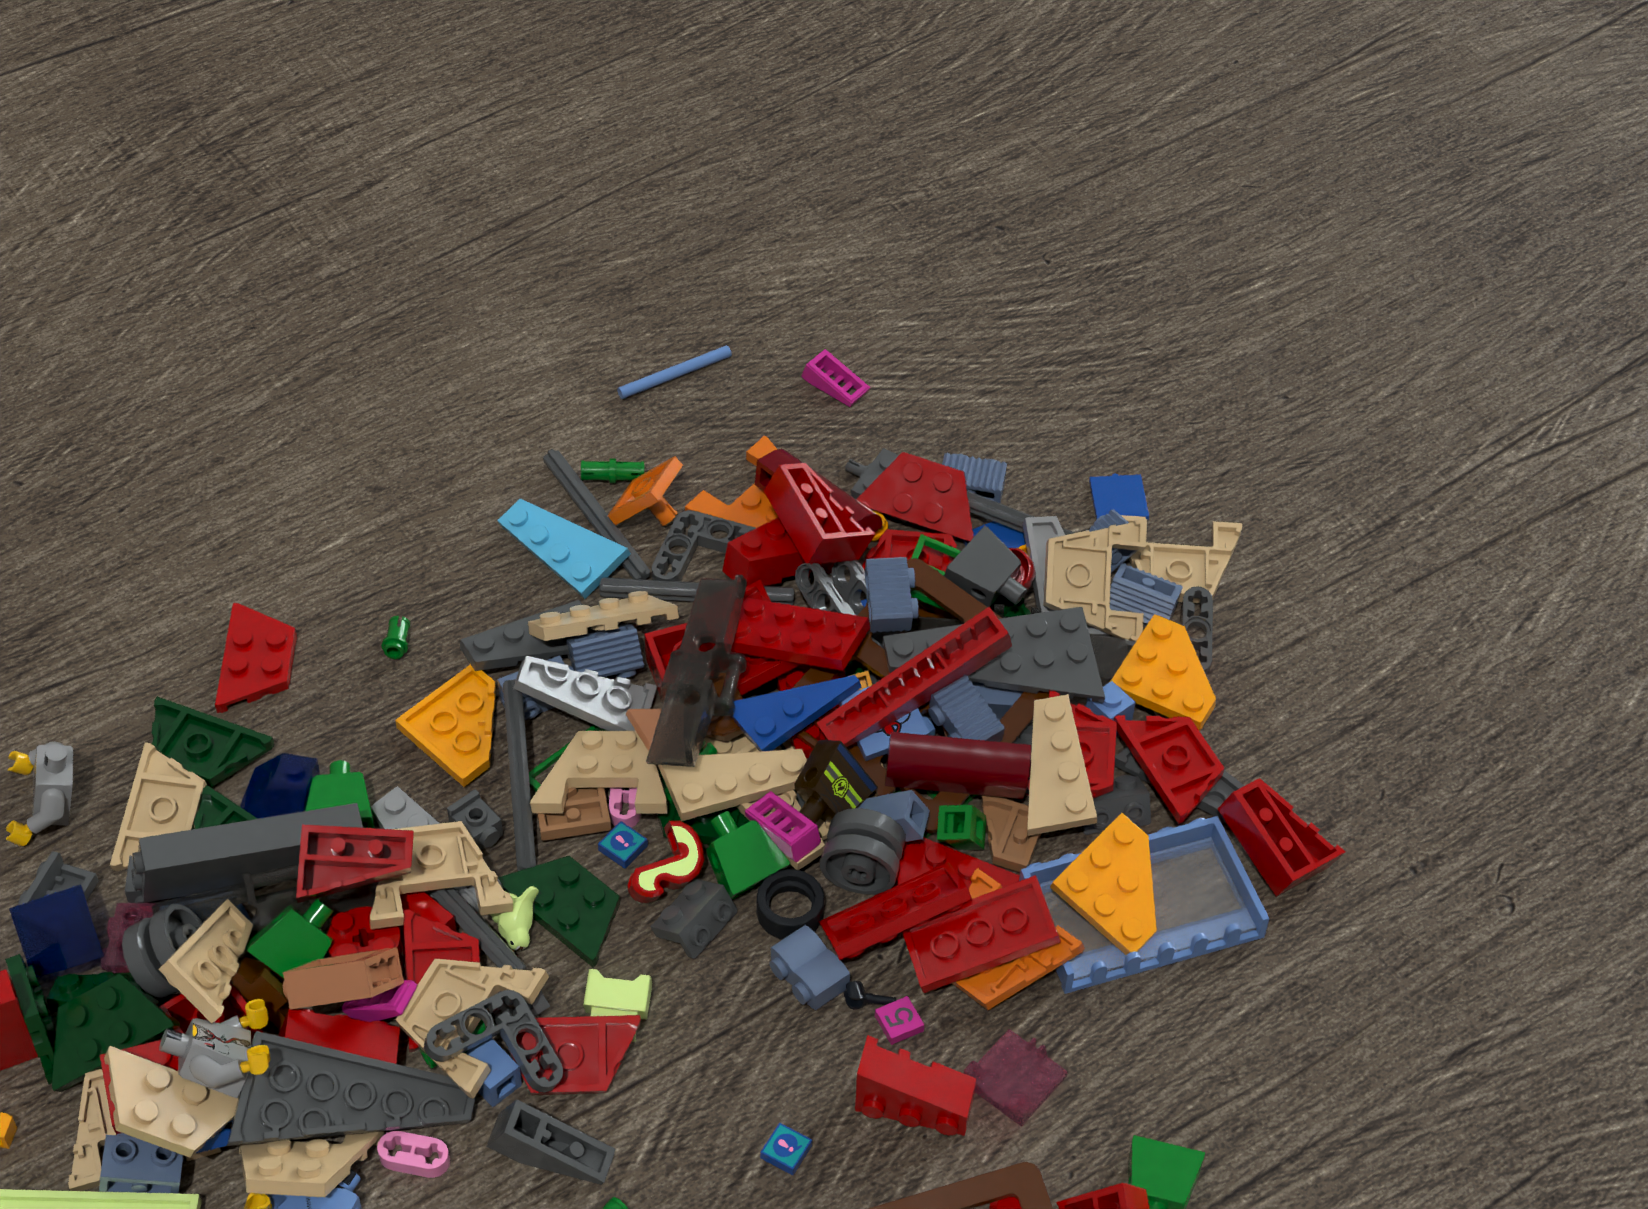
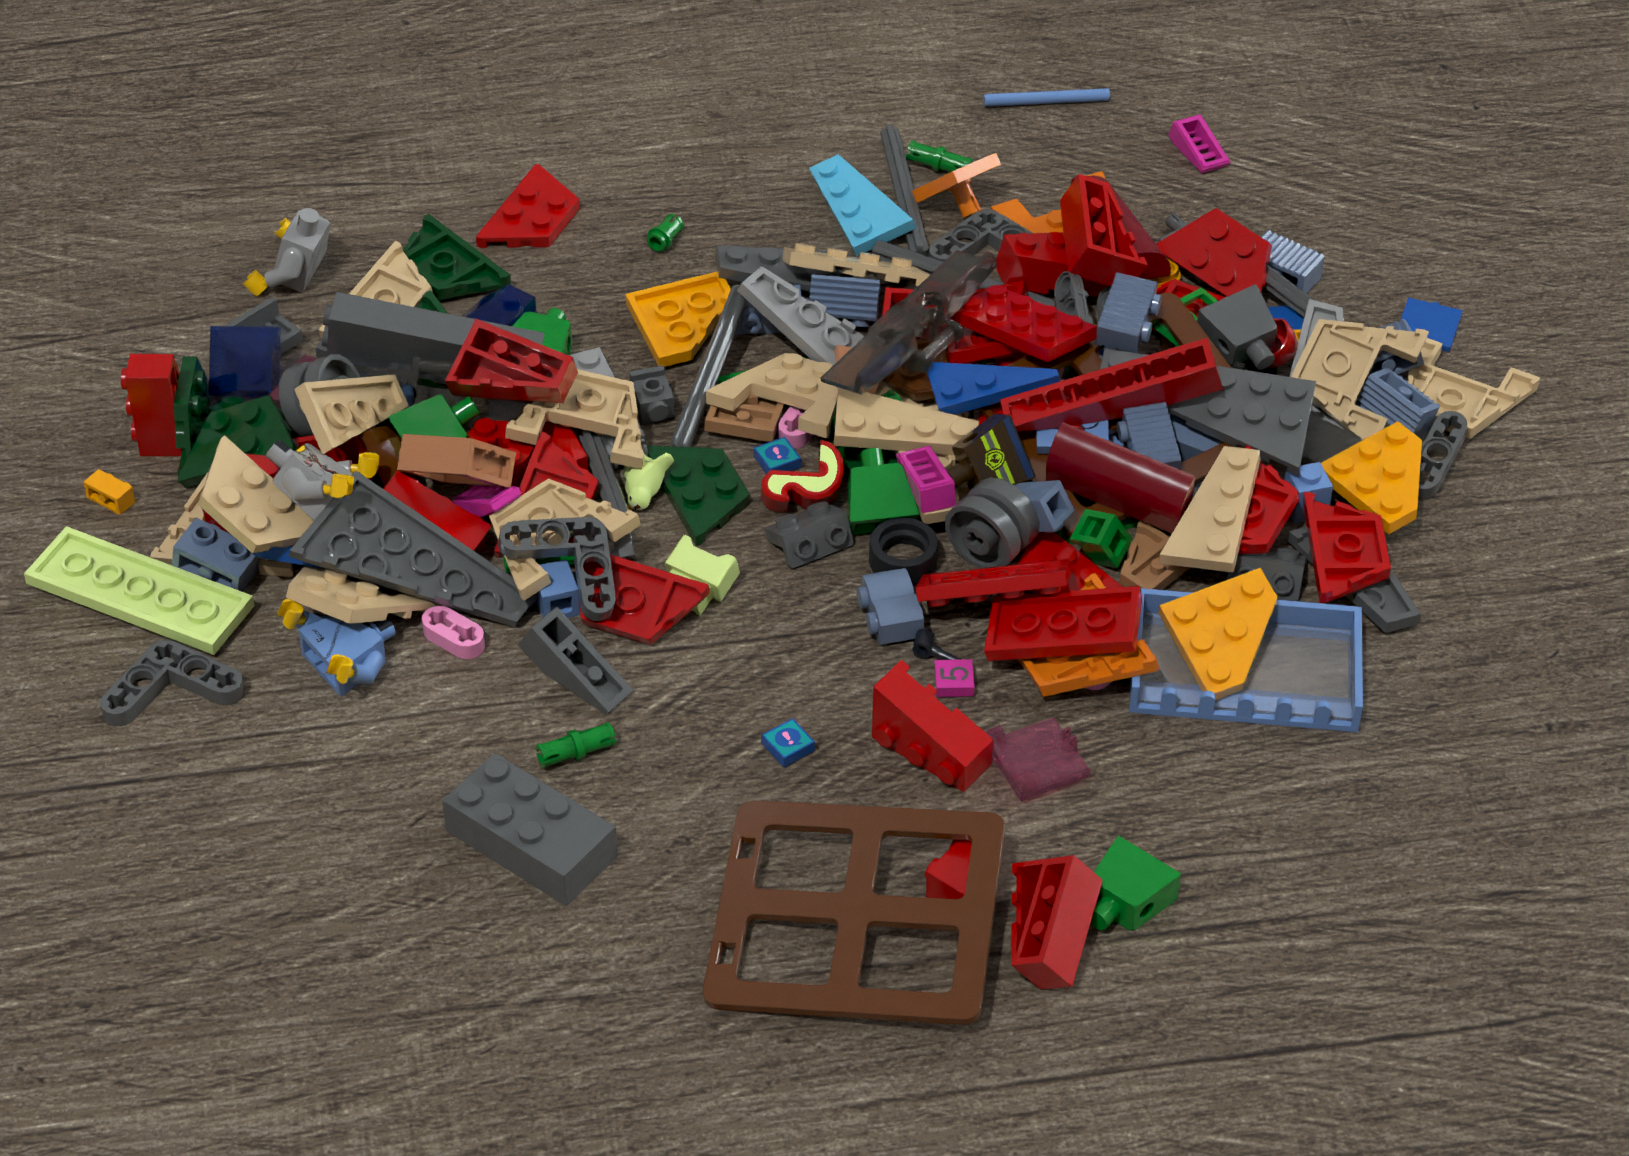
camera: 25 degrees right, 5 degrees down
(1275, 837) = (1411, 646): red wedge -> none

